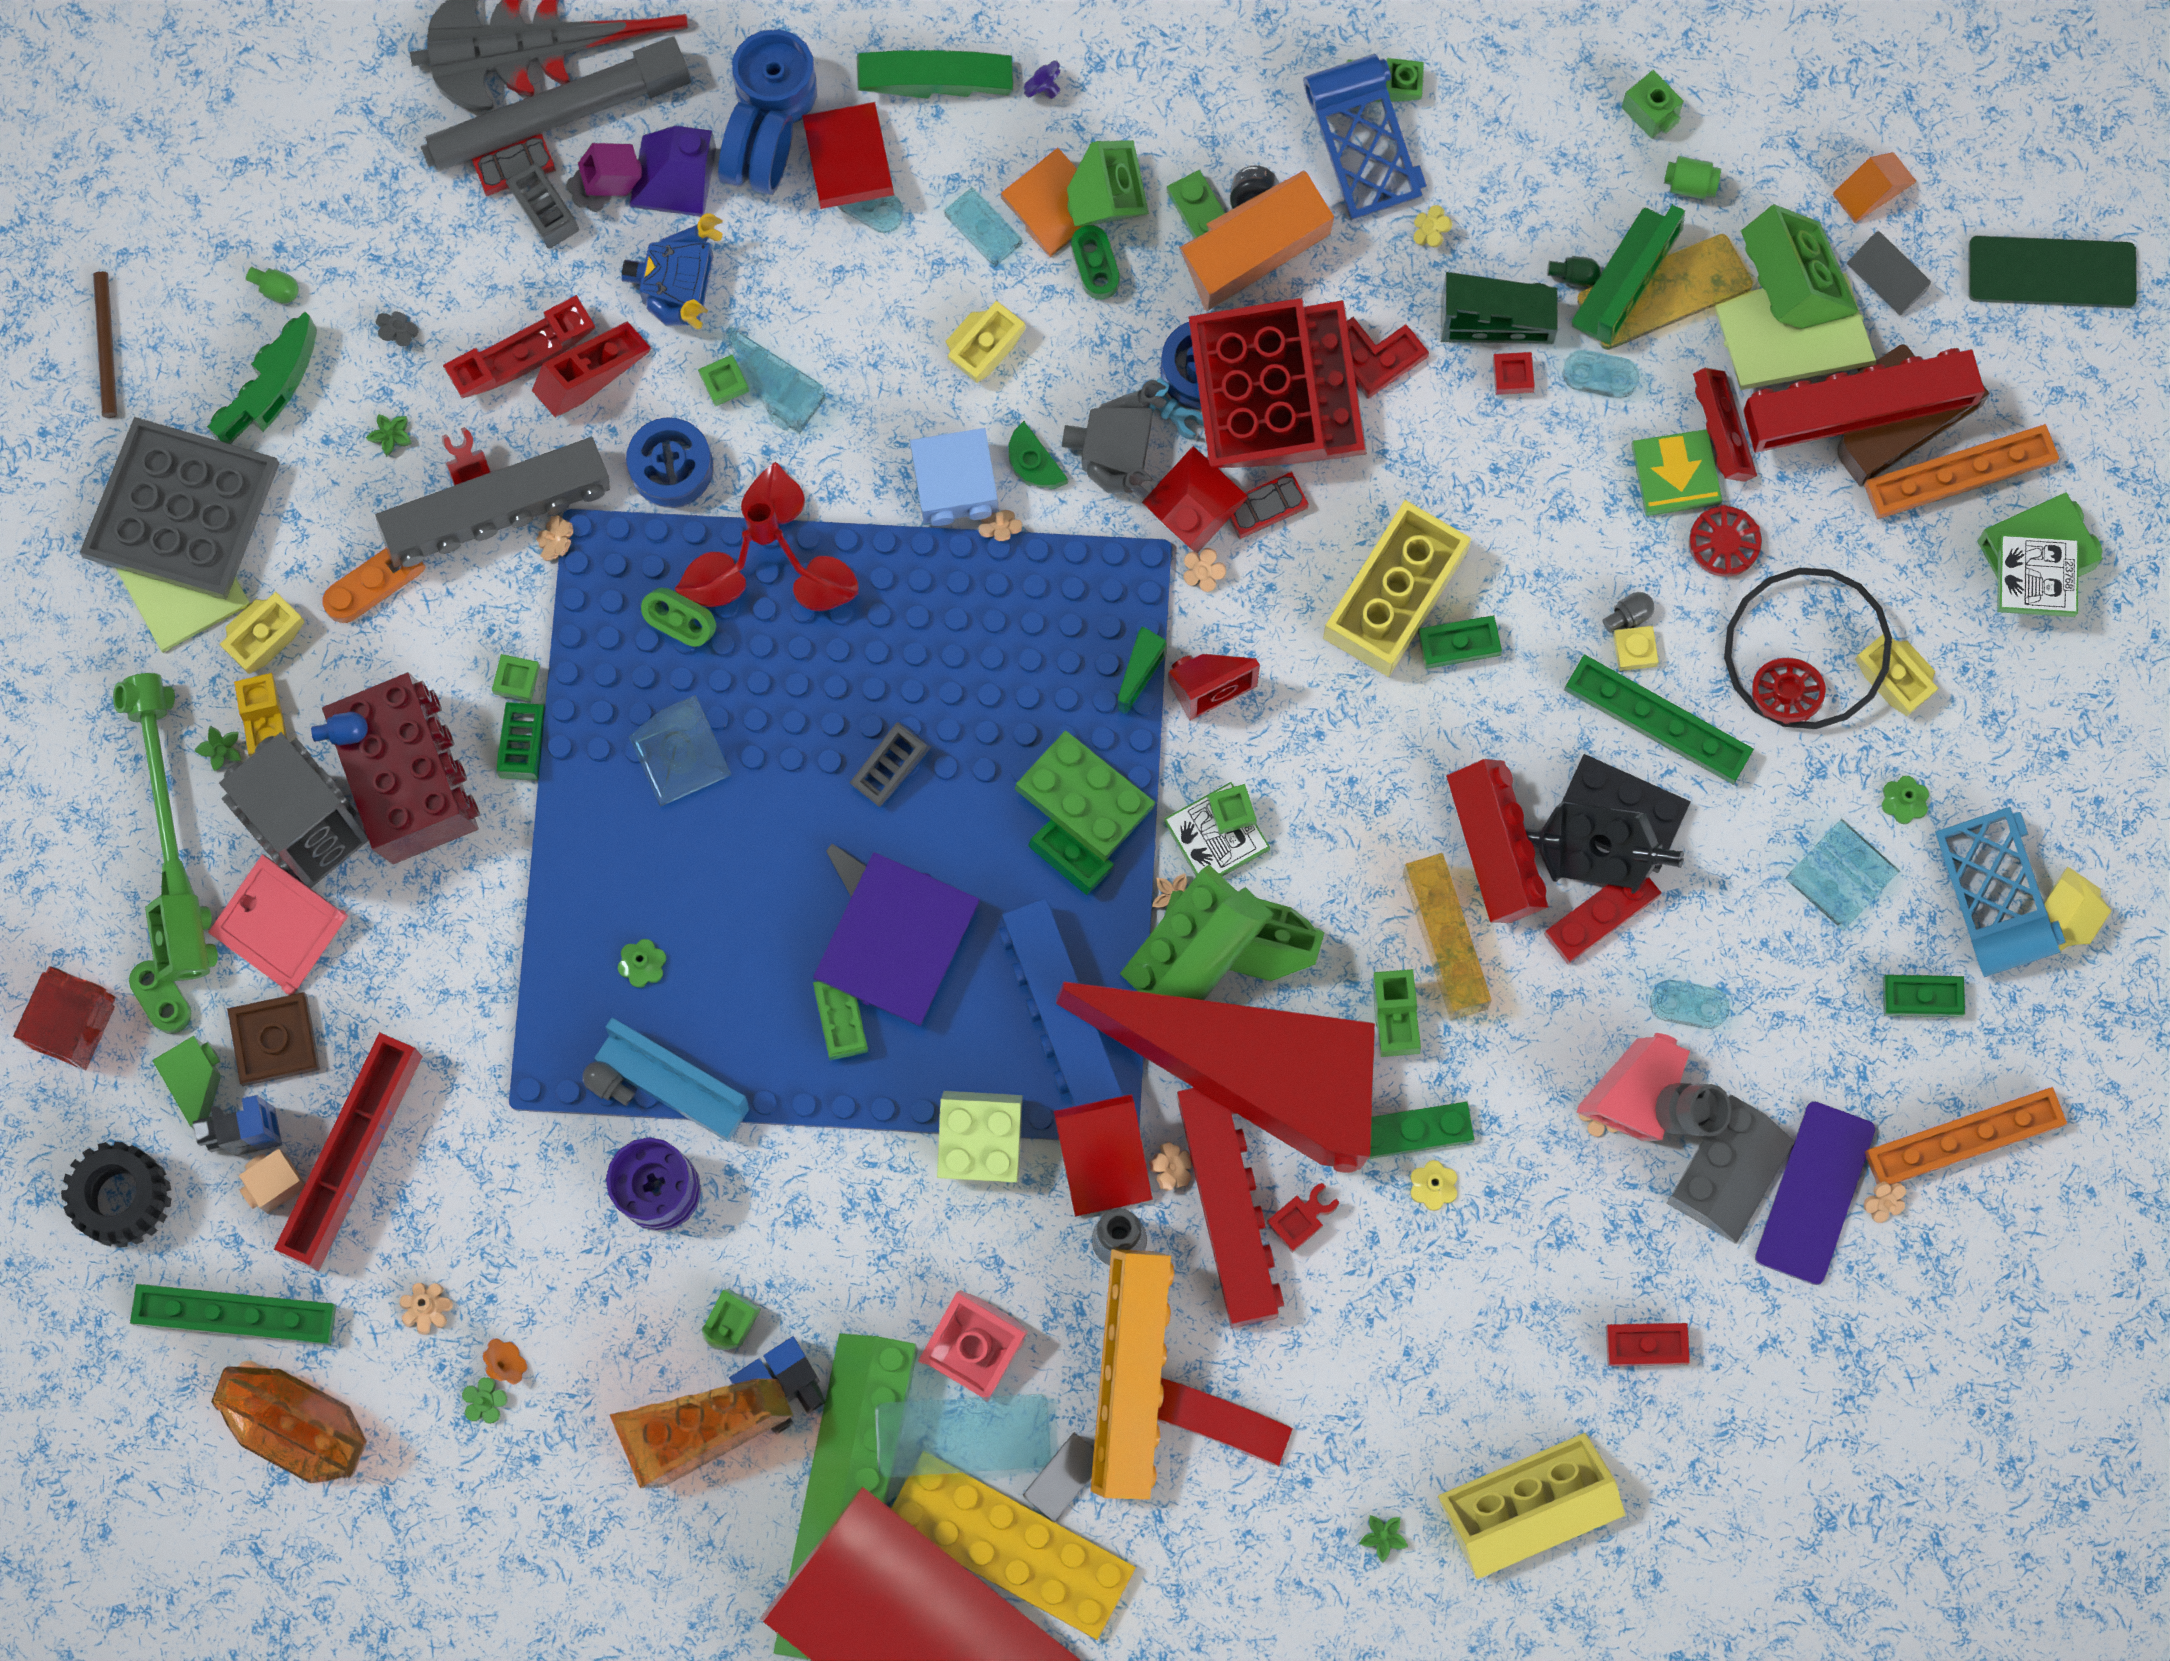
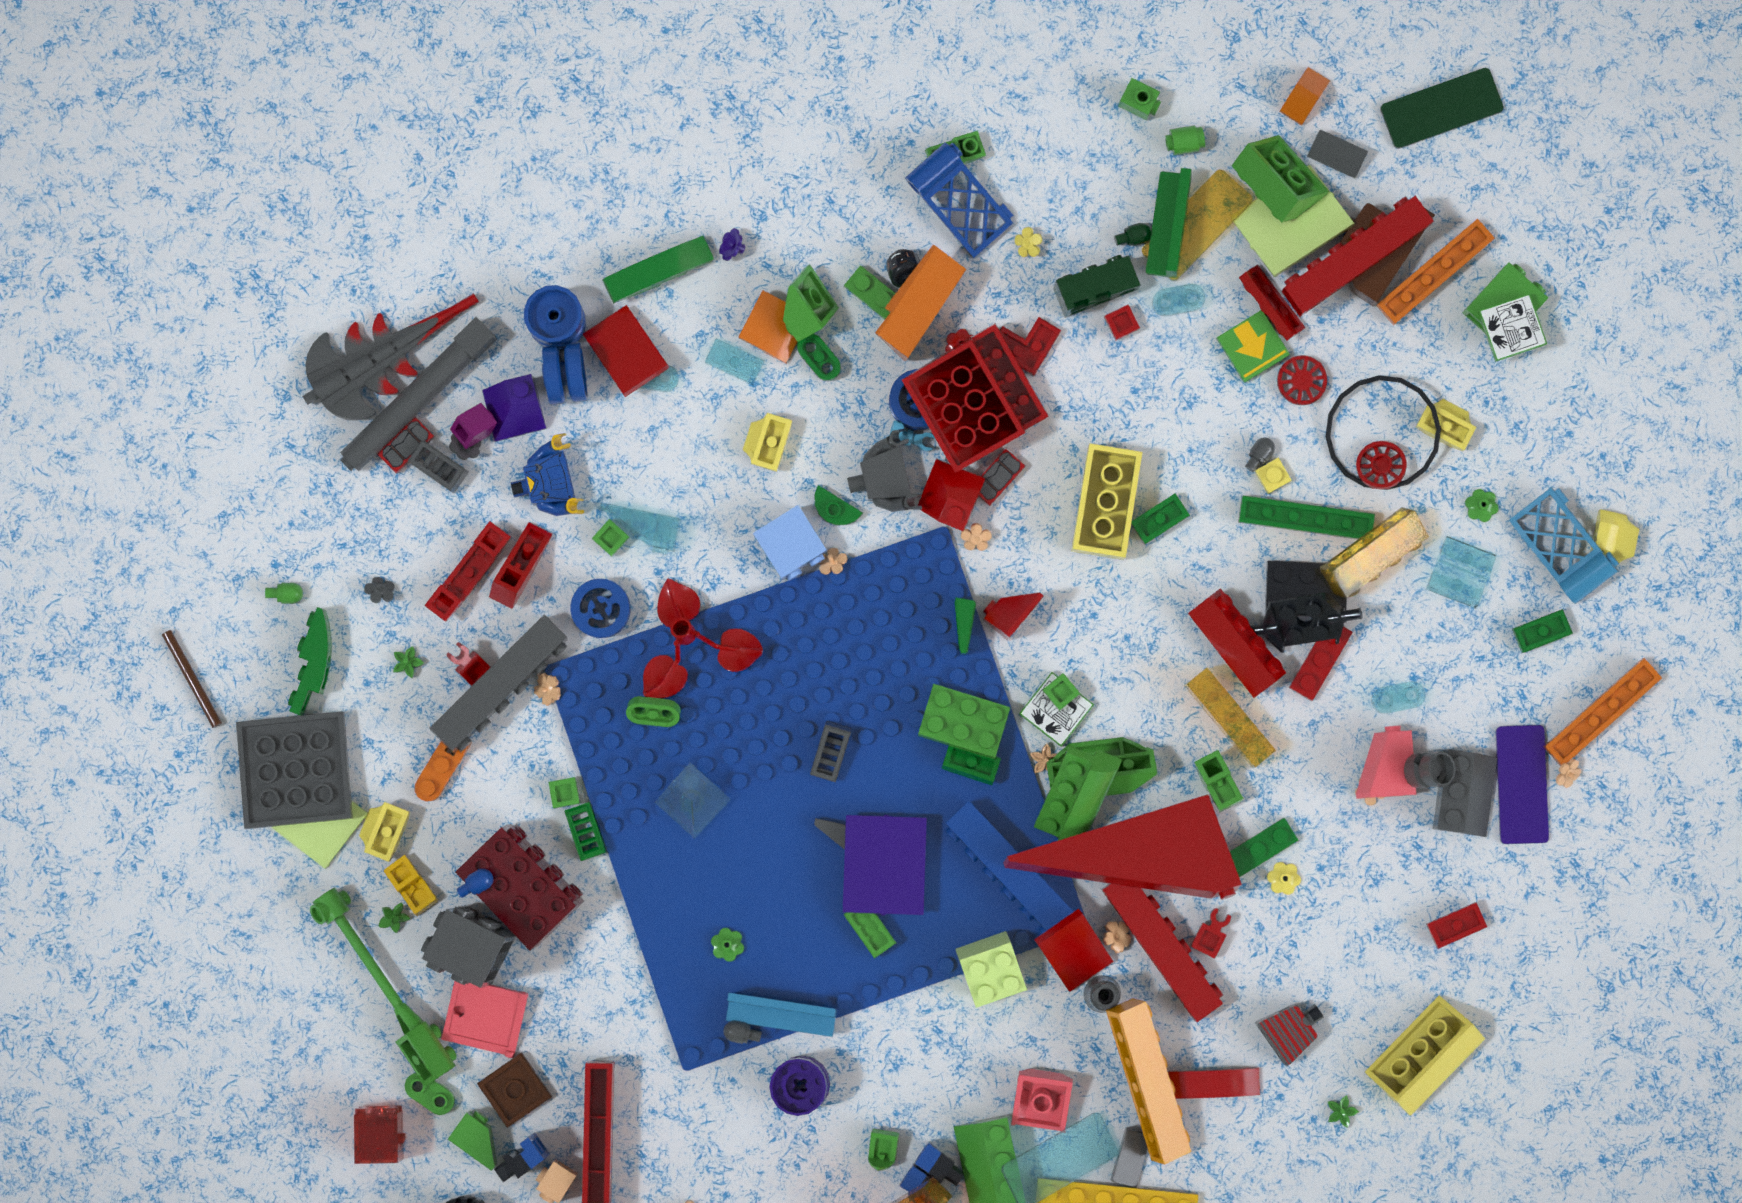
camera: 25 degrees left, 10 degrees up
(1356, 1392) = (1290, 1031): none -> torso
(1732, 796) = (1374, 552): none -> clear yellow brick

